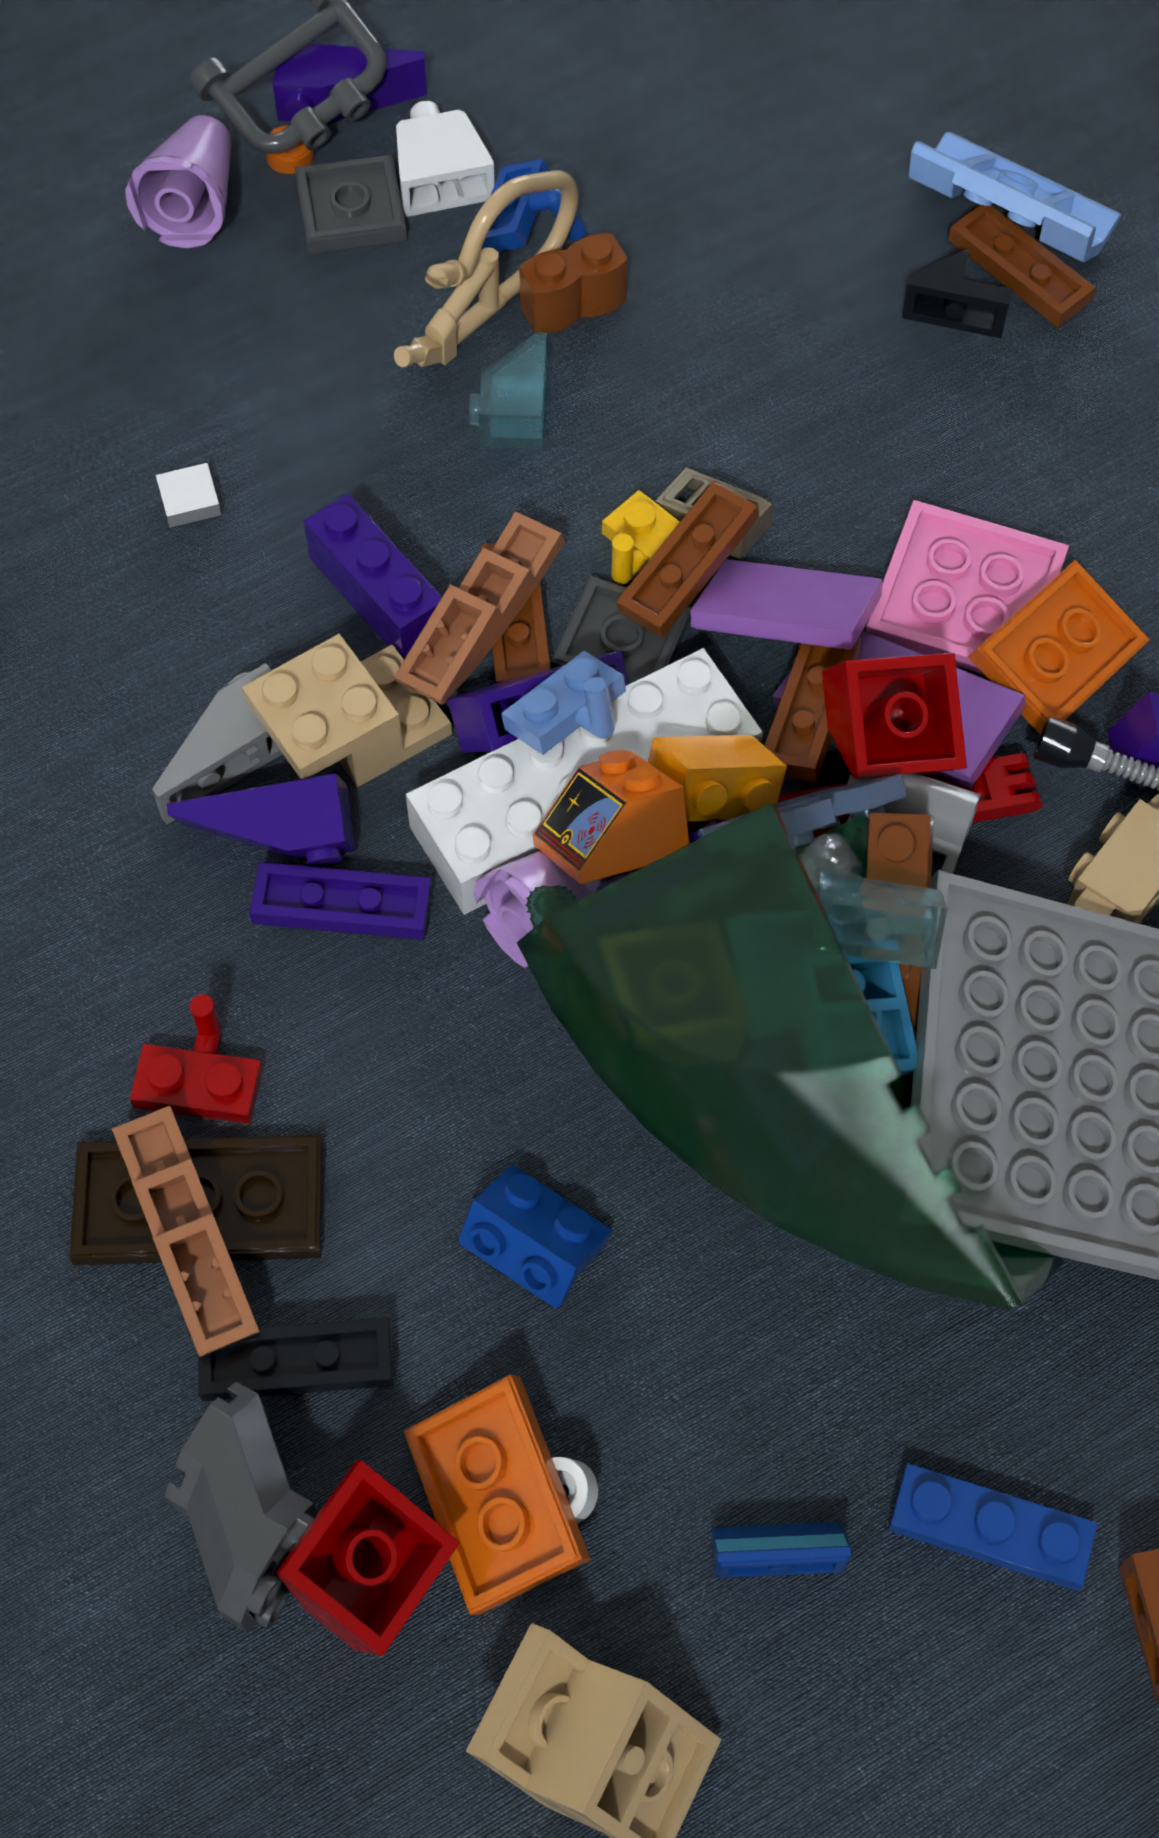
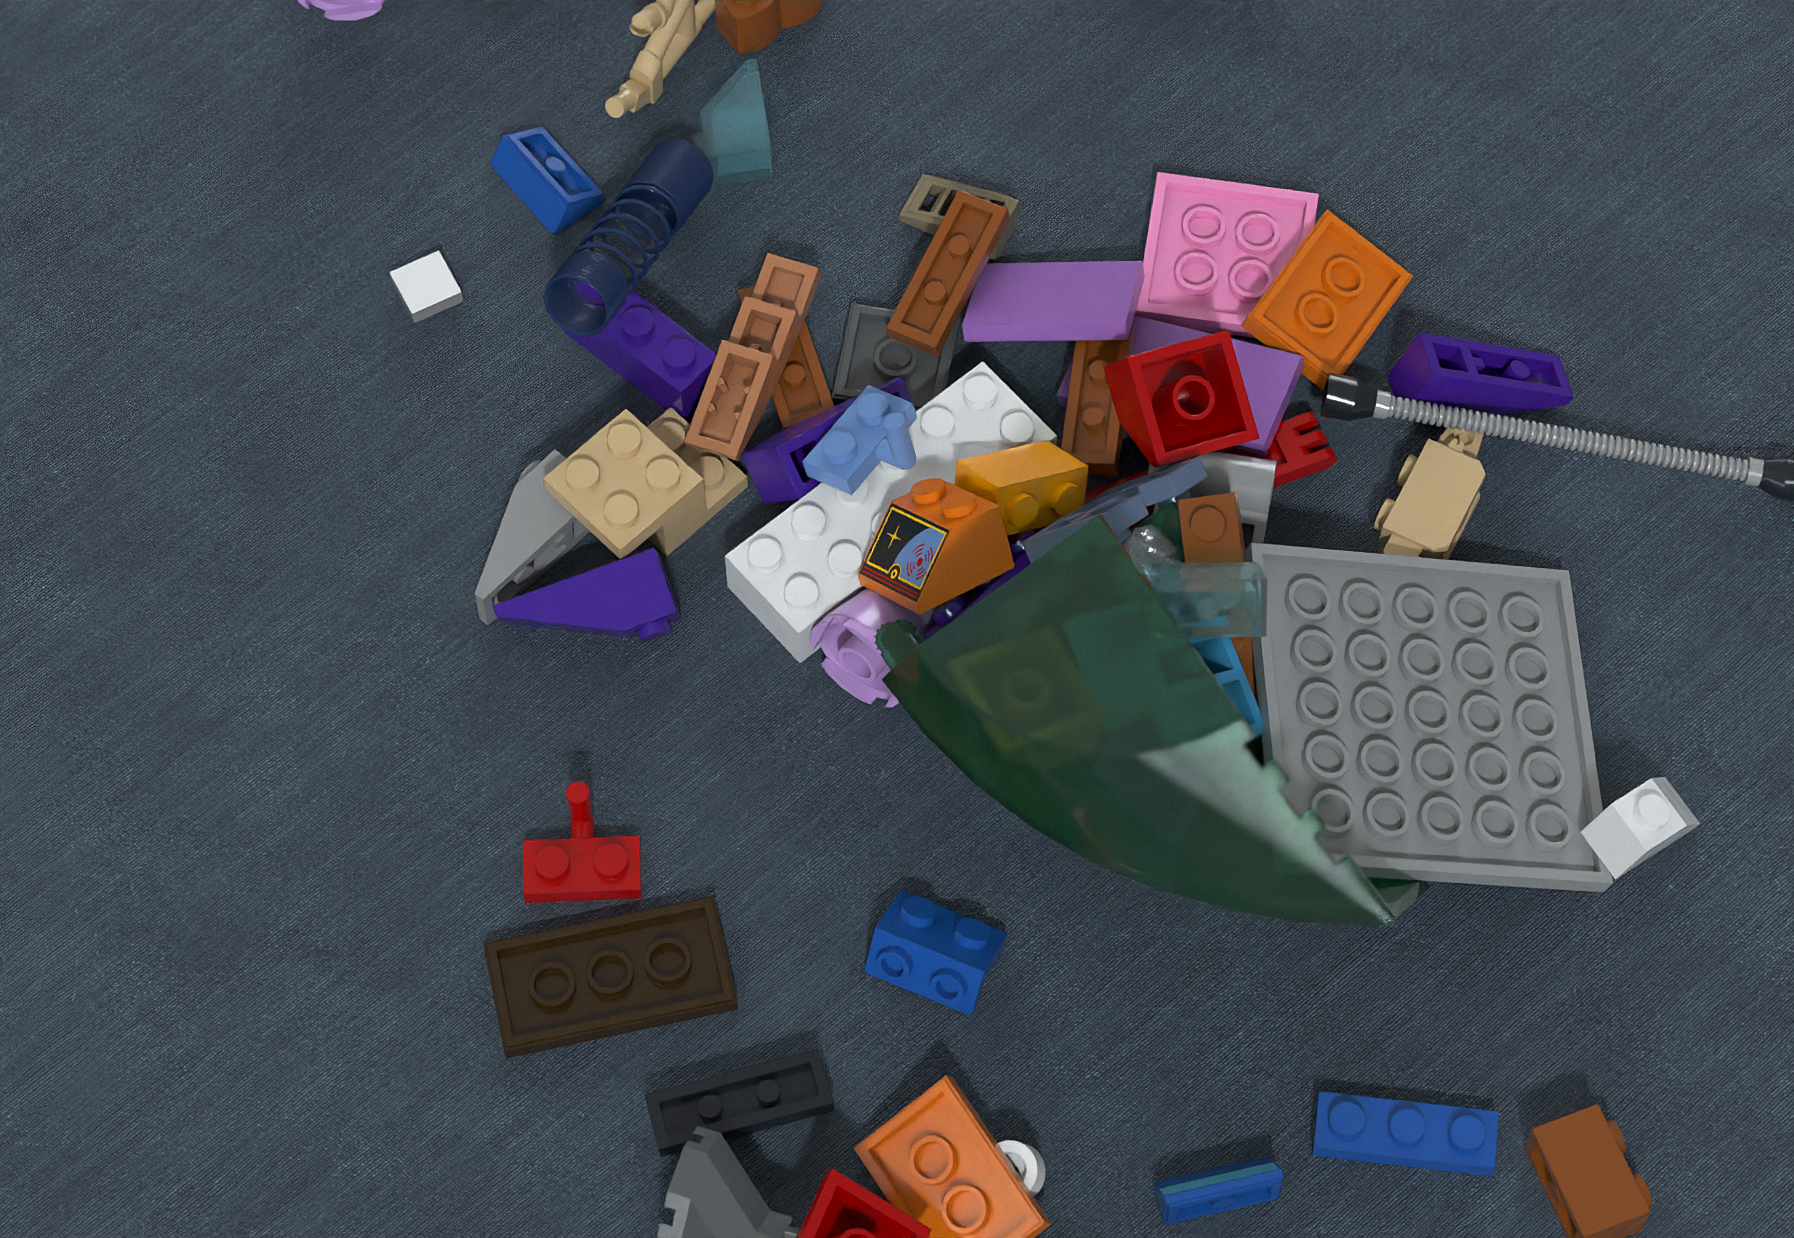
camera: 10 degrees left, 0 degrees up
(185, 1231) = (611, 1003): nougat slope -> none
(326, 414) = (545, 178): none -> blue slope
(341, 900) = (680, 670): dark purple plate -> none
(415, 449) = (653, 206): none -> dark blue piece
(636, 534) = (893, 252): yellow plate -> none

